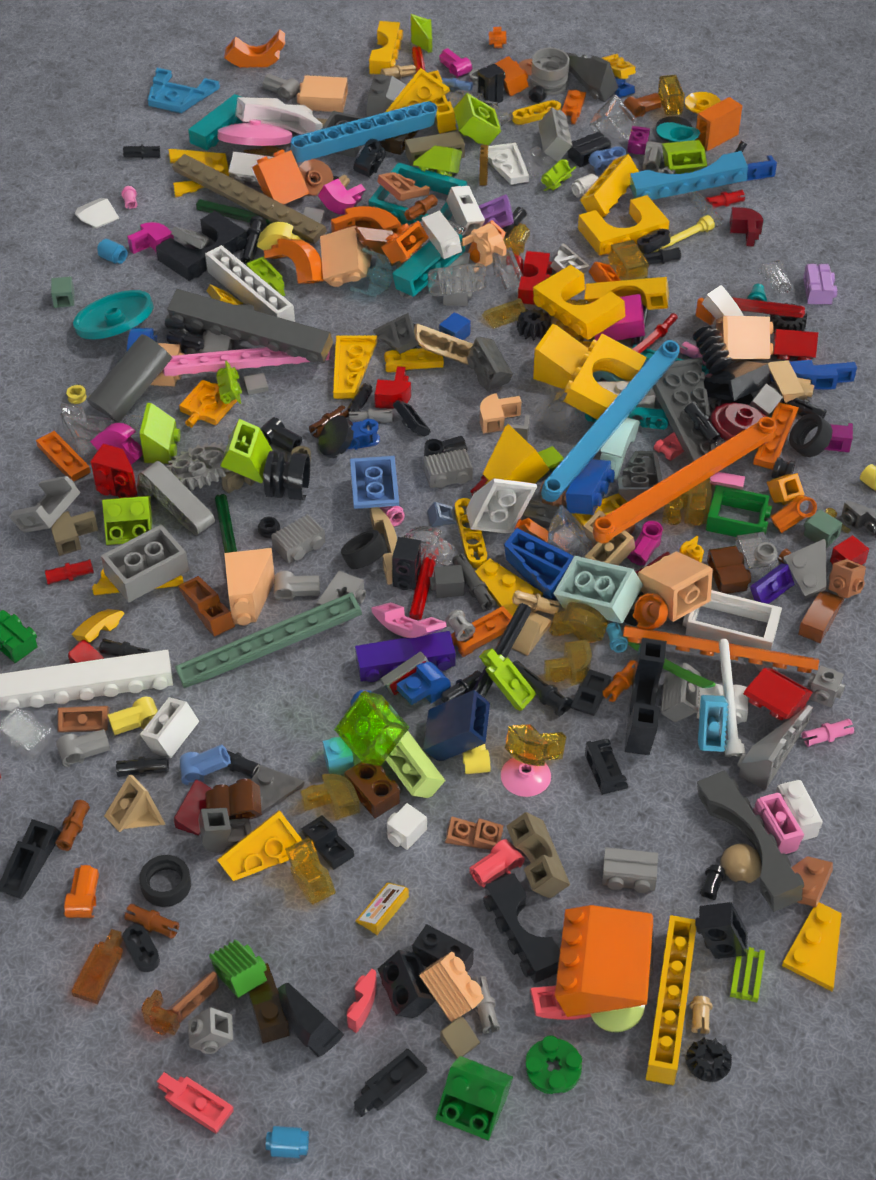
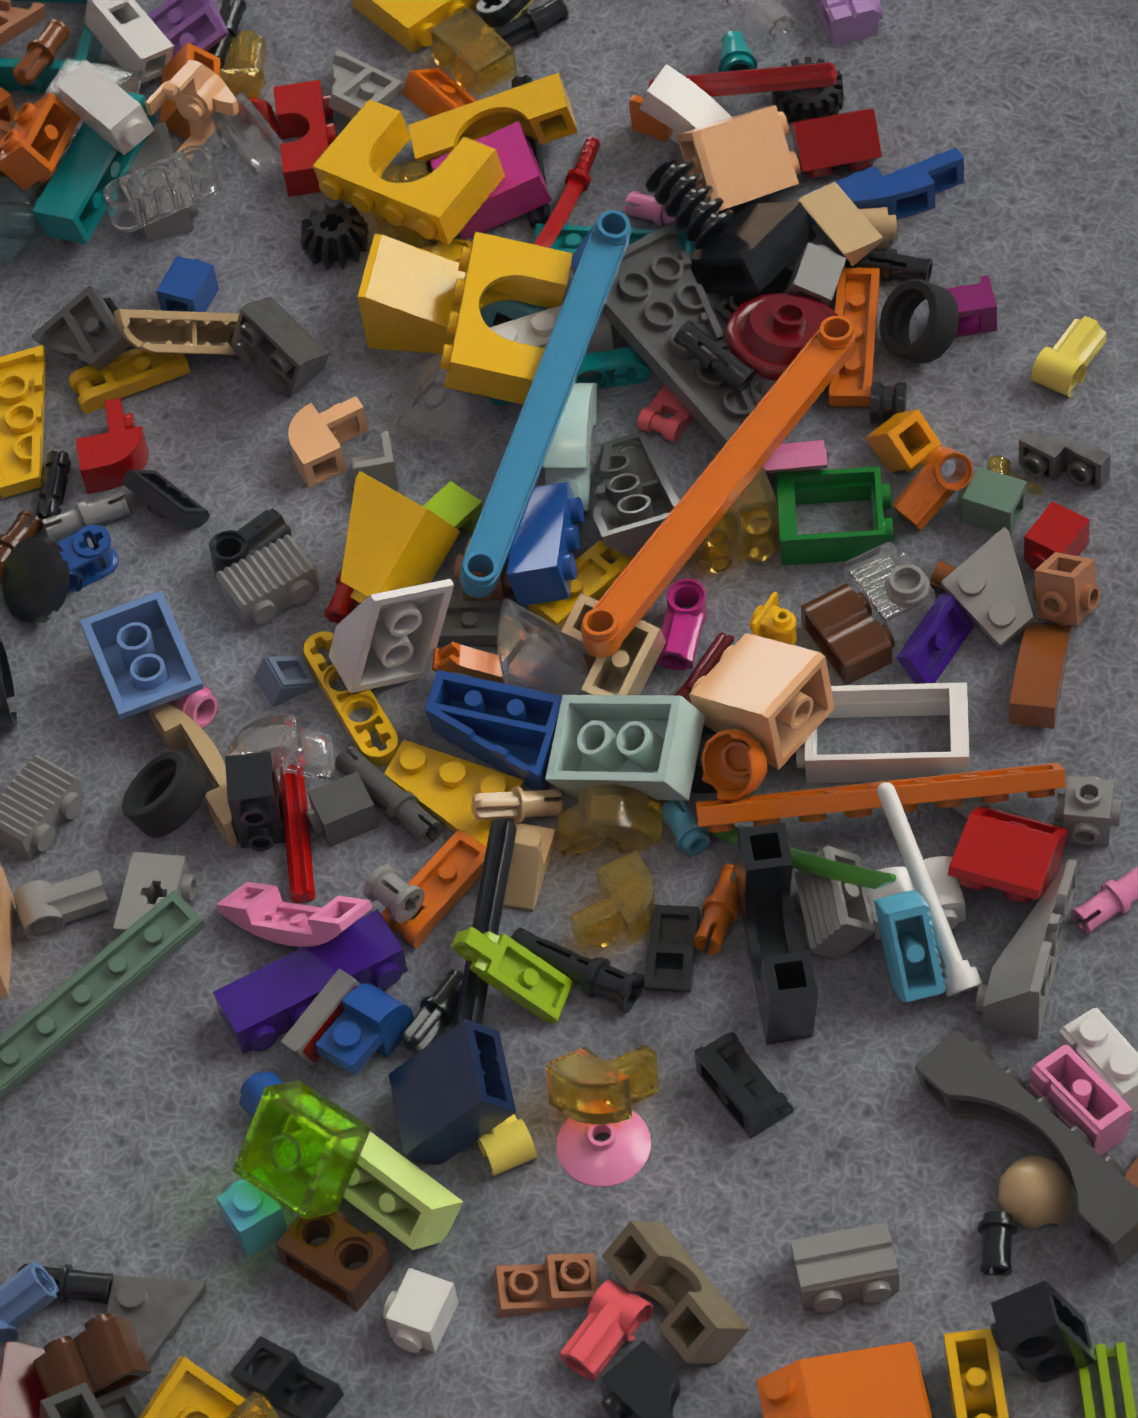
camera: 10 degrees left, 5 degrees up
(336, 792) = (271, 1284): clear yellow brick -> none
(504, 313) = (271, 228): clear yellow slope -> none

